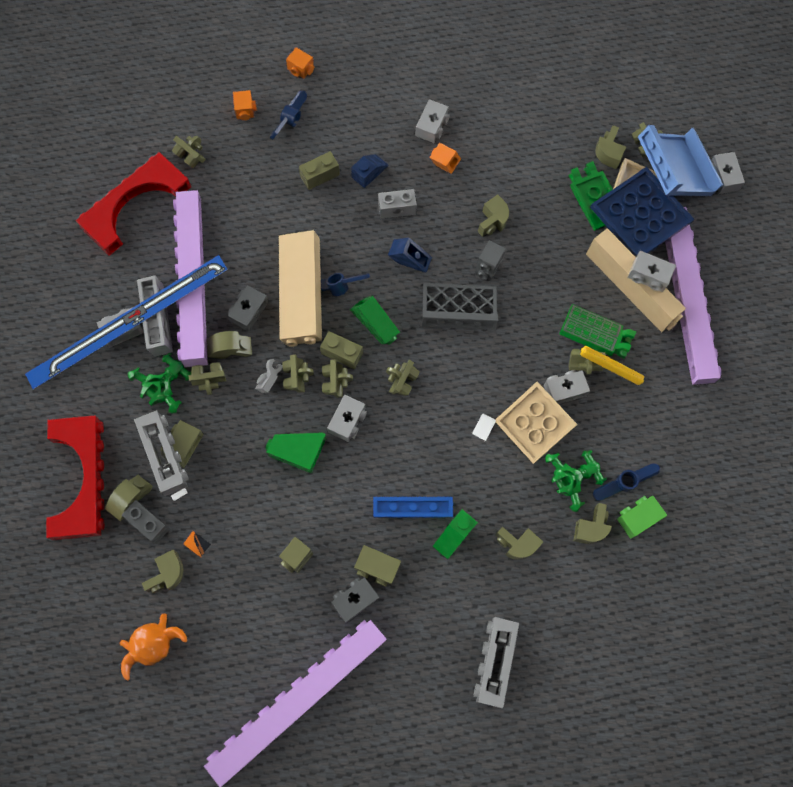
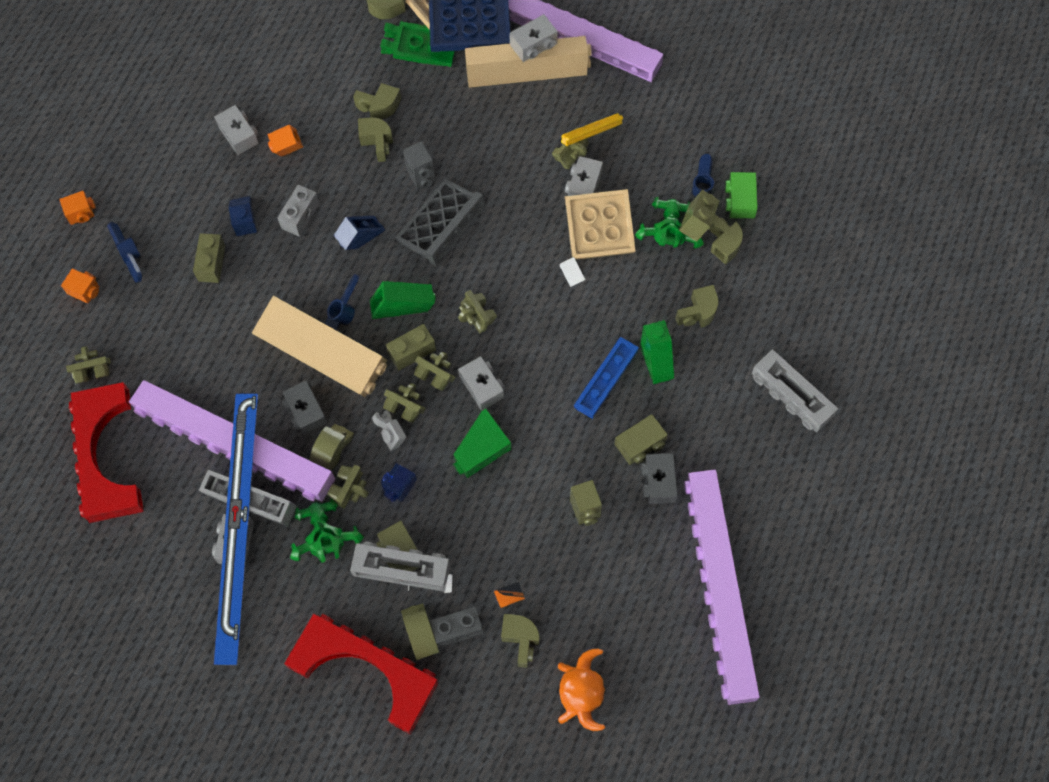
camera: 50 degrees left, 5 degrees down
(231, 409) = (398, 483): none -> clear blue brick
(525, 203) = (382, 104): none -> olive brick
(594, 494) = (699, 215): none -> olive brick
(597, 332) = (550, 124): green tile -> none

